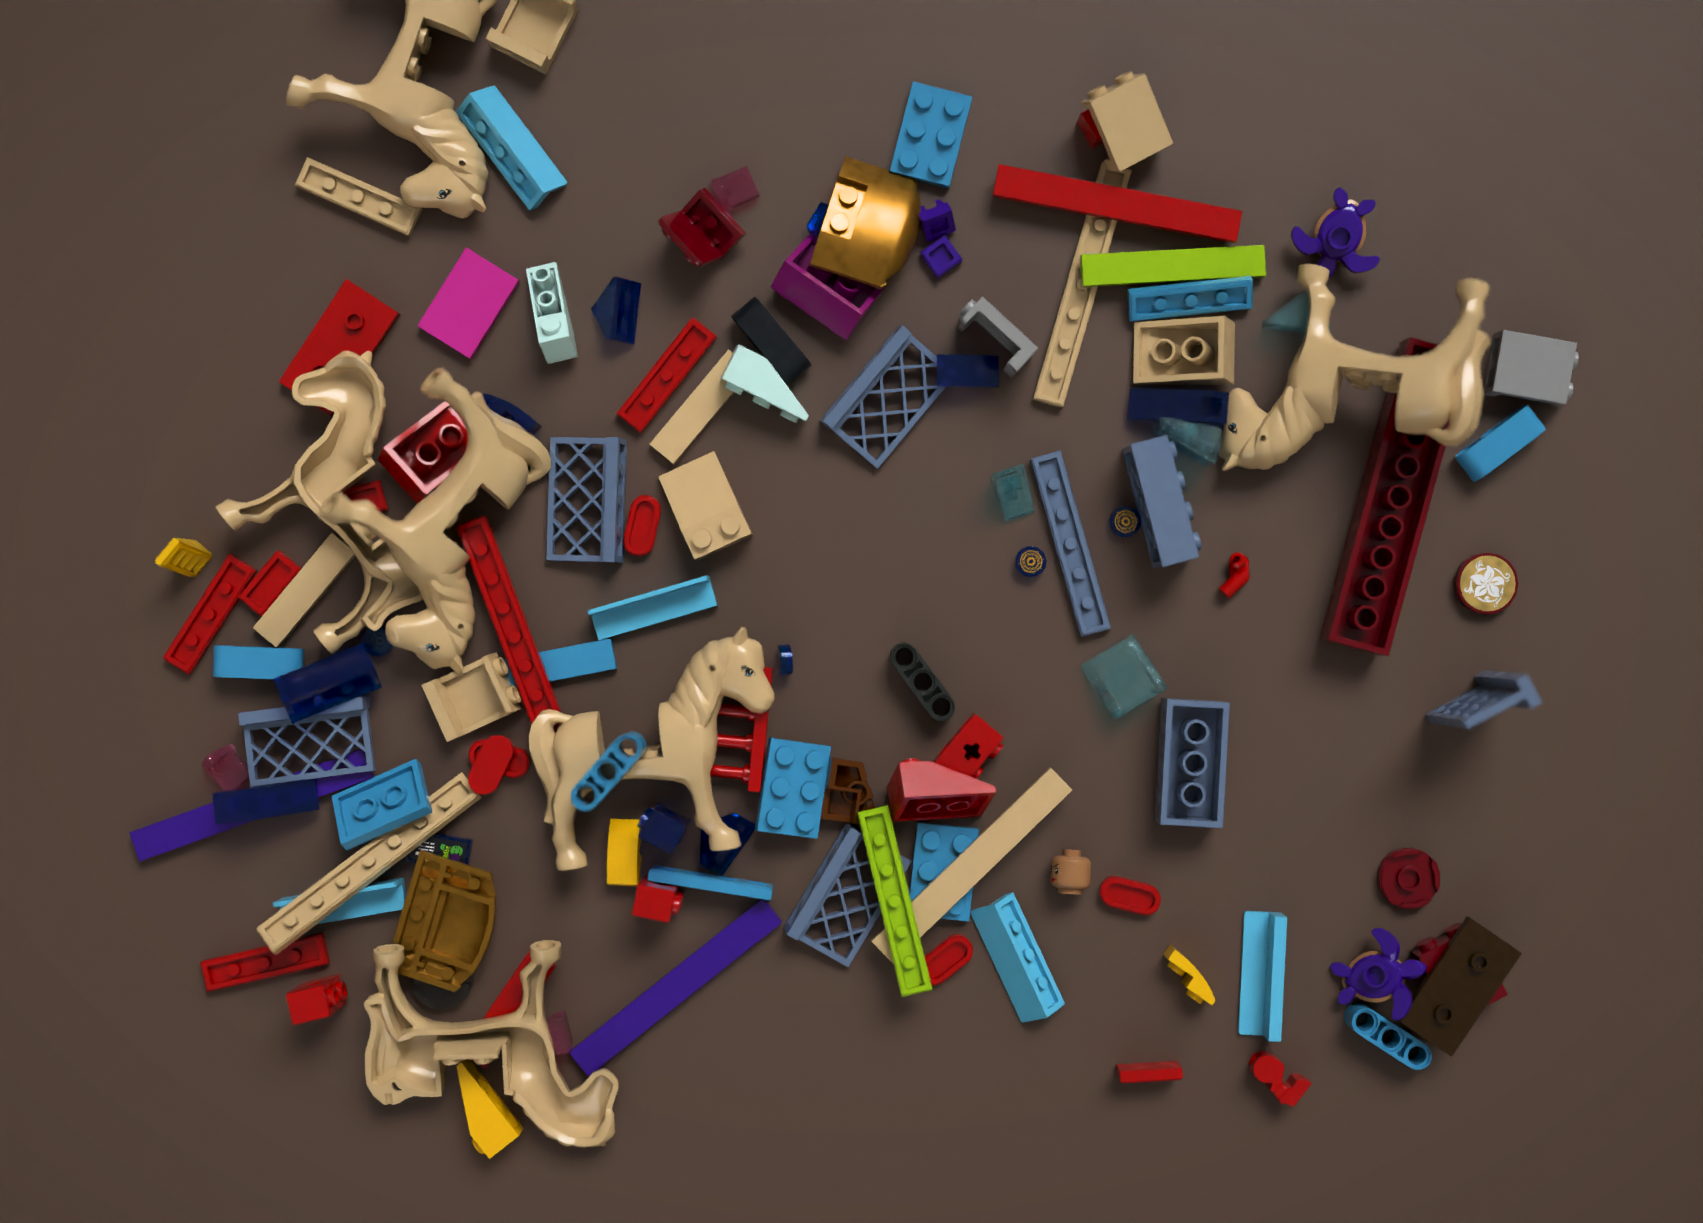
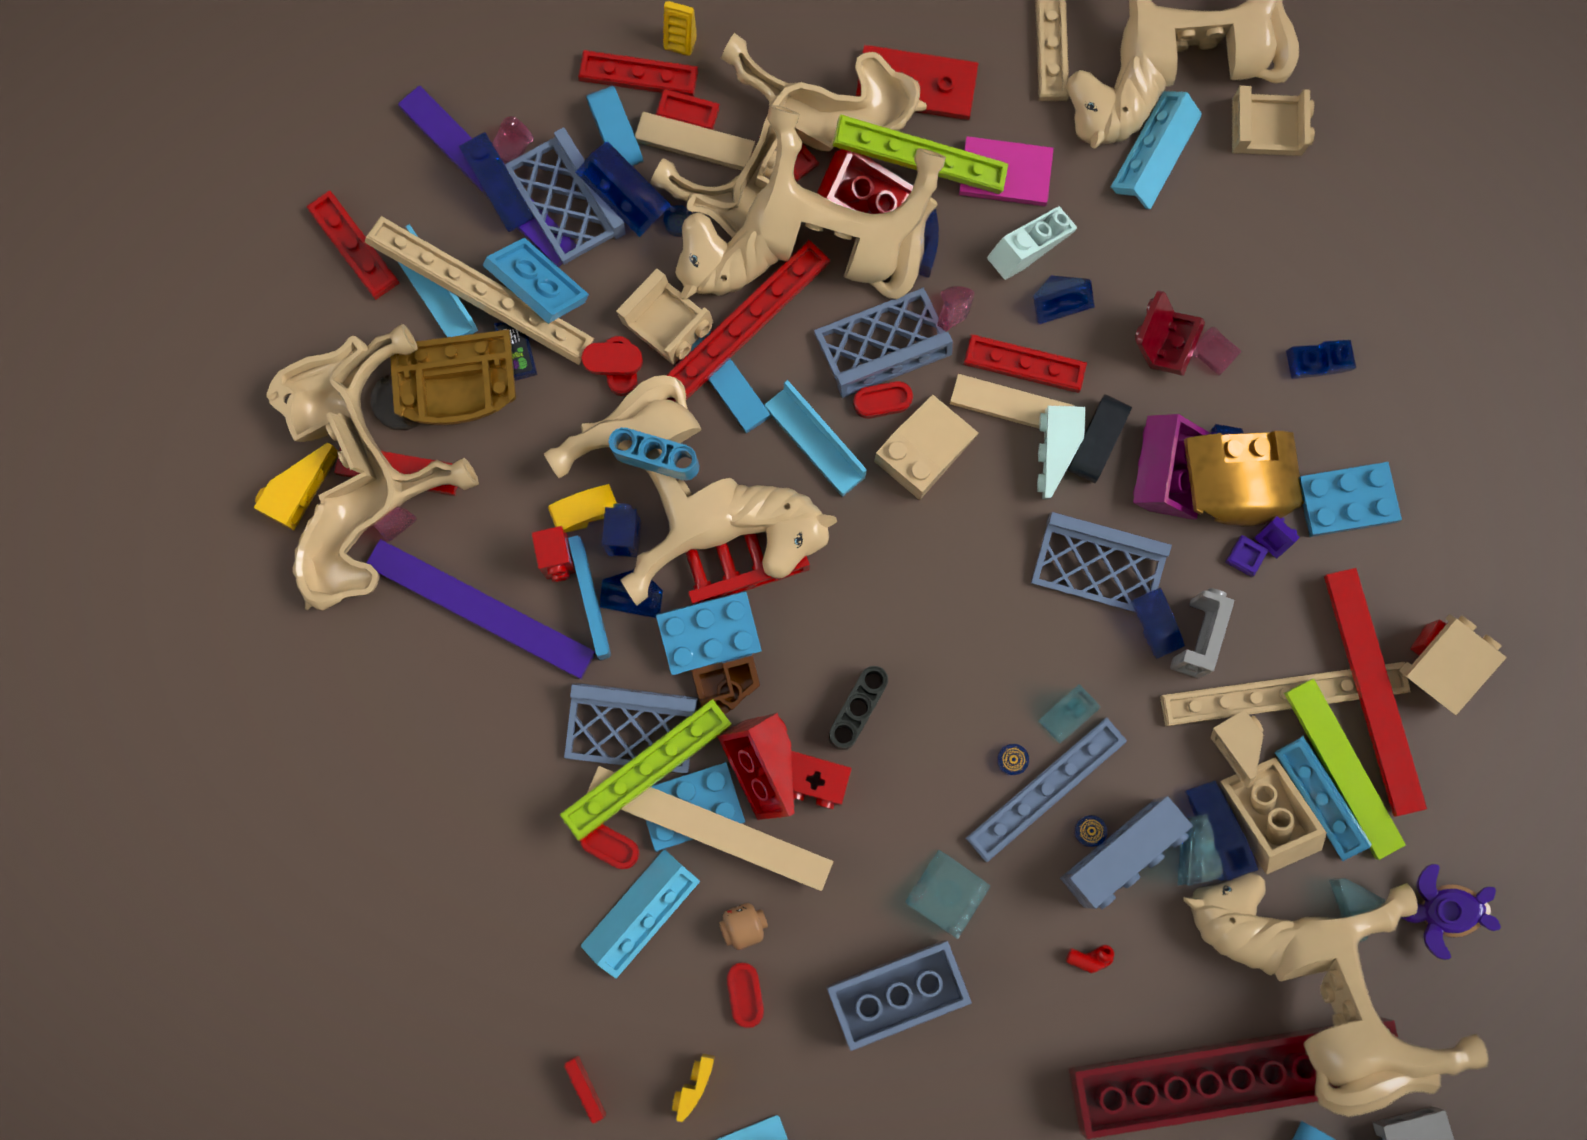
camera: 60 degrees right, 10 degrees down
(316, 999) = (338, 297): red brick -> none
(407, 397) = (901, 150): none -> lime tile
(585, 416) = (955, 307): none -> clear pink tile
(785, 659) = (821, 575): clear blue tile -> none
(787, 93) = (1321, 359): none -> clear blue slope
(1109, 349) = (1240, 744): none -> tan slope

